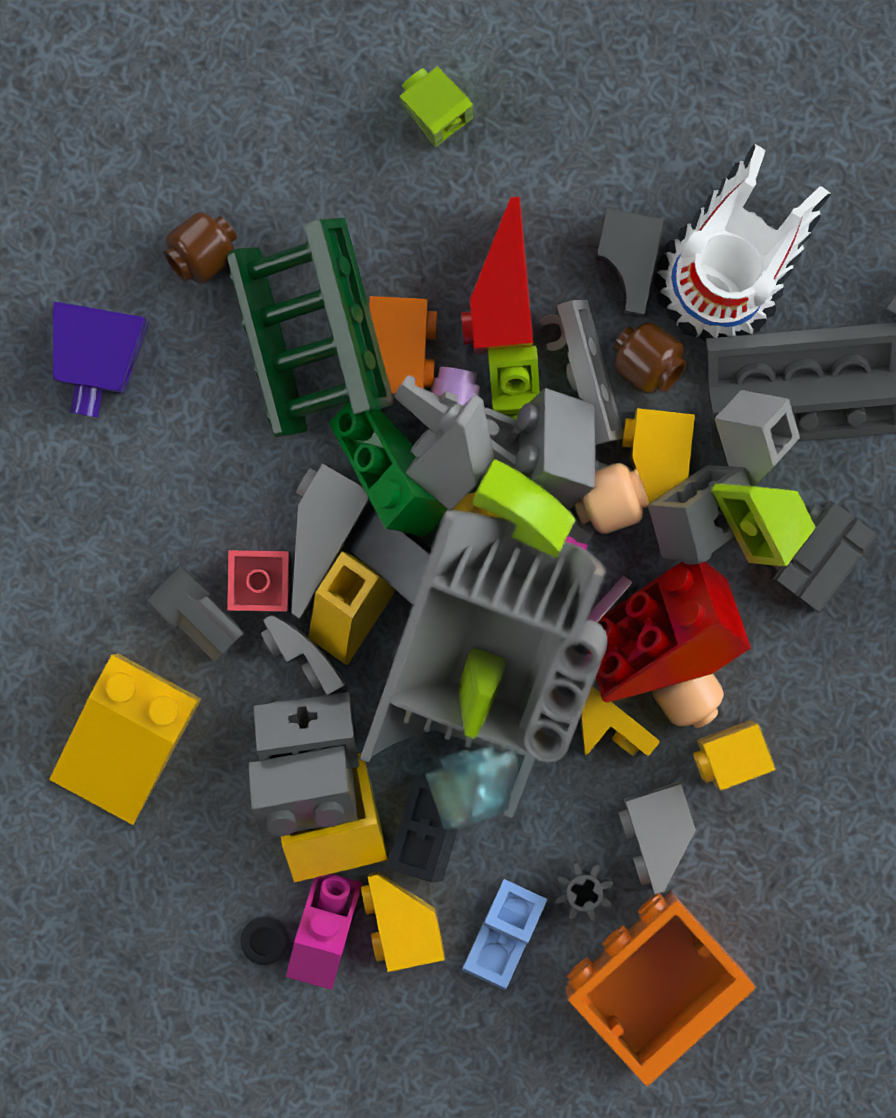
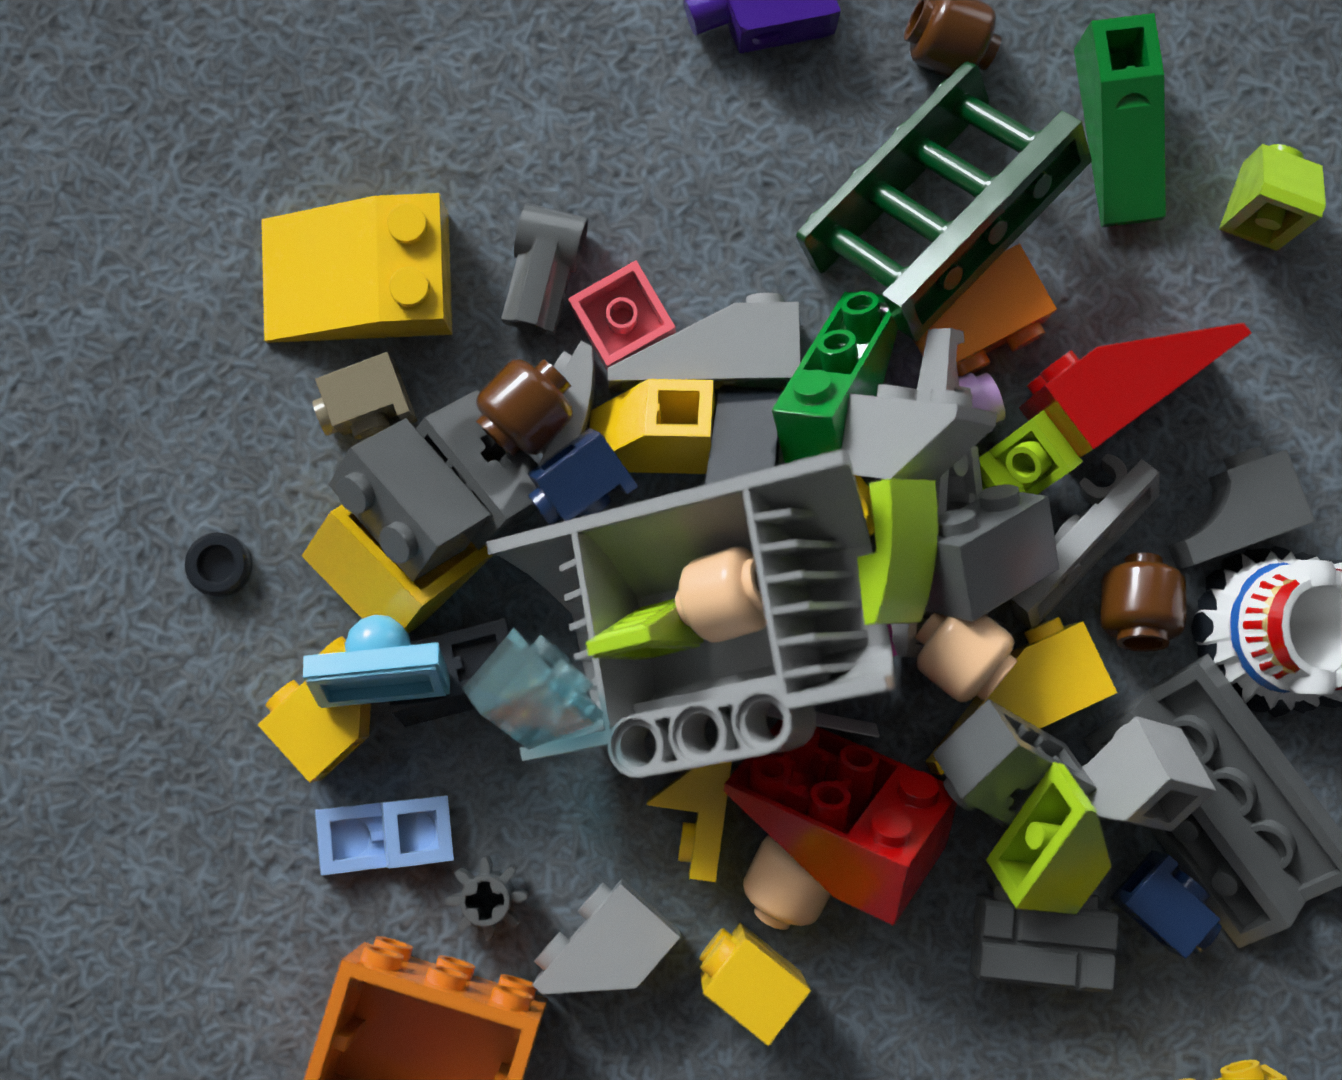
camera: 55 degrees right, 5 degrees down
(213, 782) = (362, 398): none -> dark tan brick
(287, 683) = (524, 407): none -> reddish brown head
(323, 930) = (265, 623): dark pink slope -> none
(328, 172) = (1124, 117): none -> green slope
(354, 677) = (578, 479): none -> dark blue brick
(398, 873) = (377, 667): none -> medium azure tile
(484, 634) = (721, 595): none -> light nougat head
(849, 462) = (1168, 905): none -> dark blue brick

